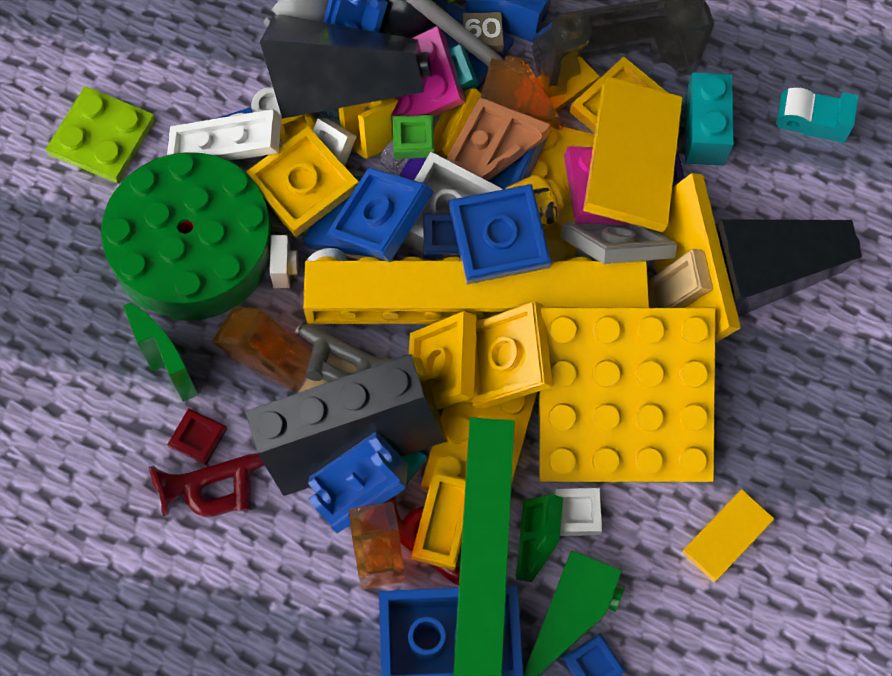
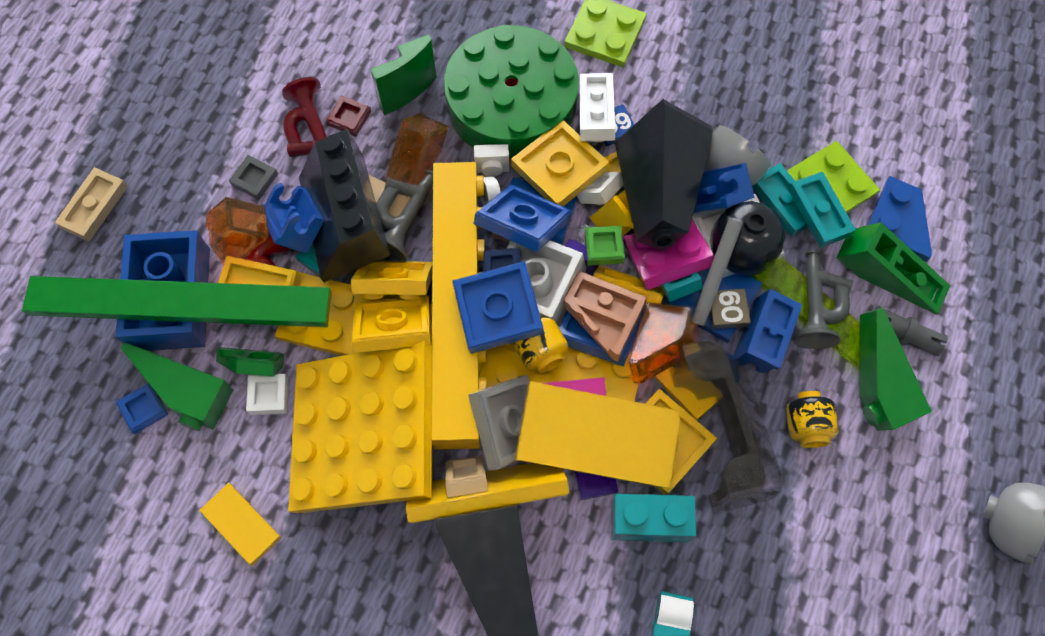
camera: 90 degrees right, 0 degrees up
(280, 552) = (253, 177): none -> dark grey tile

